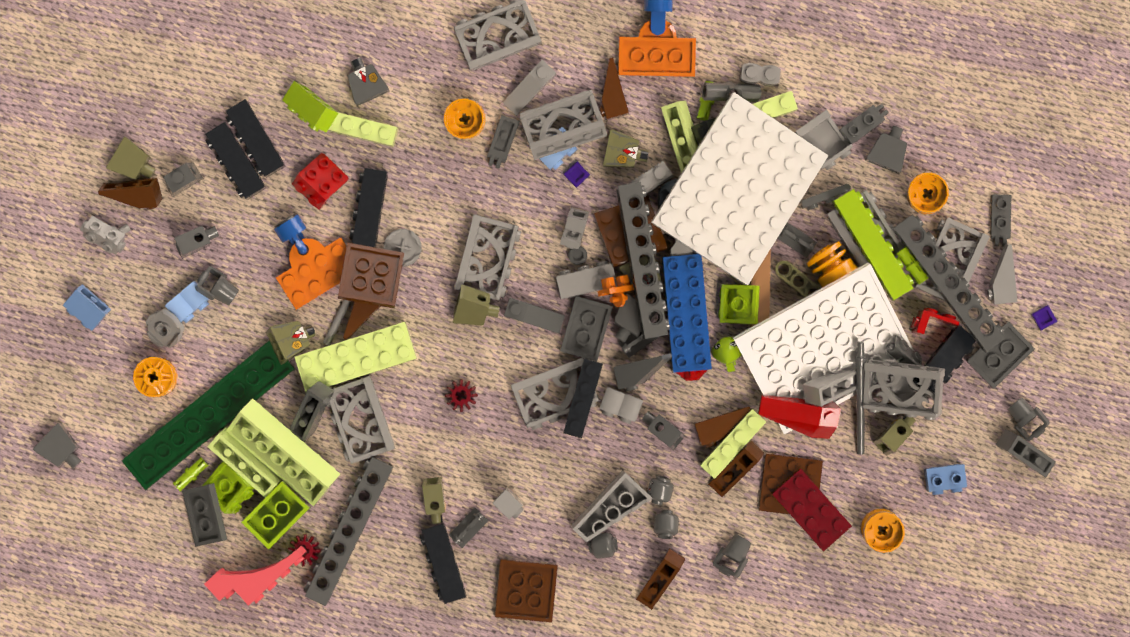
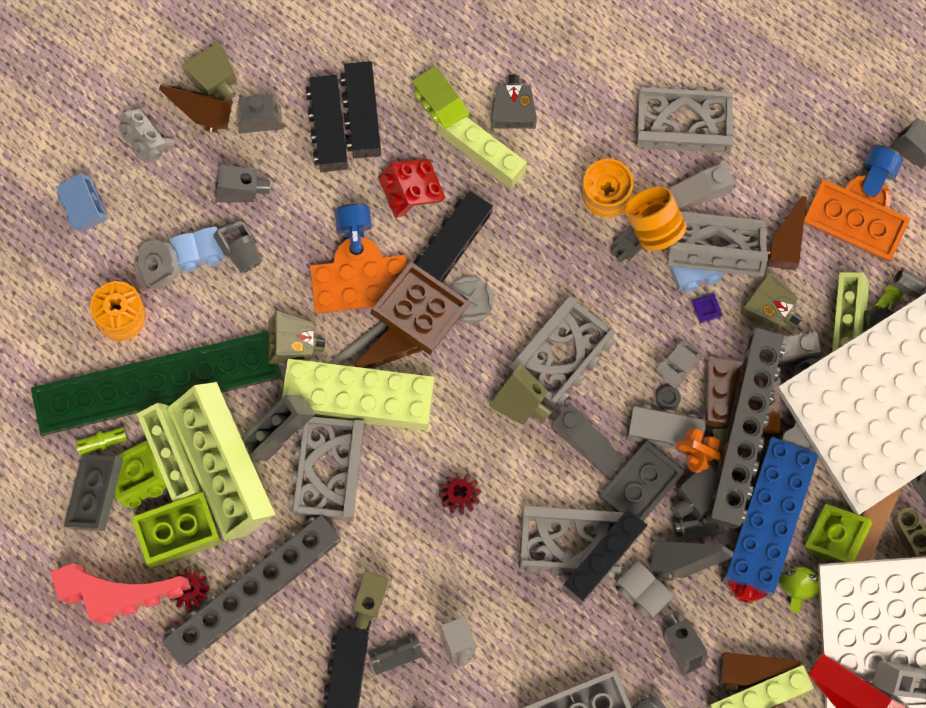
camera: 20 degrees right, 15 degrees down
(510, 131) = (655, 218): none -> light orange wheel

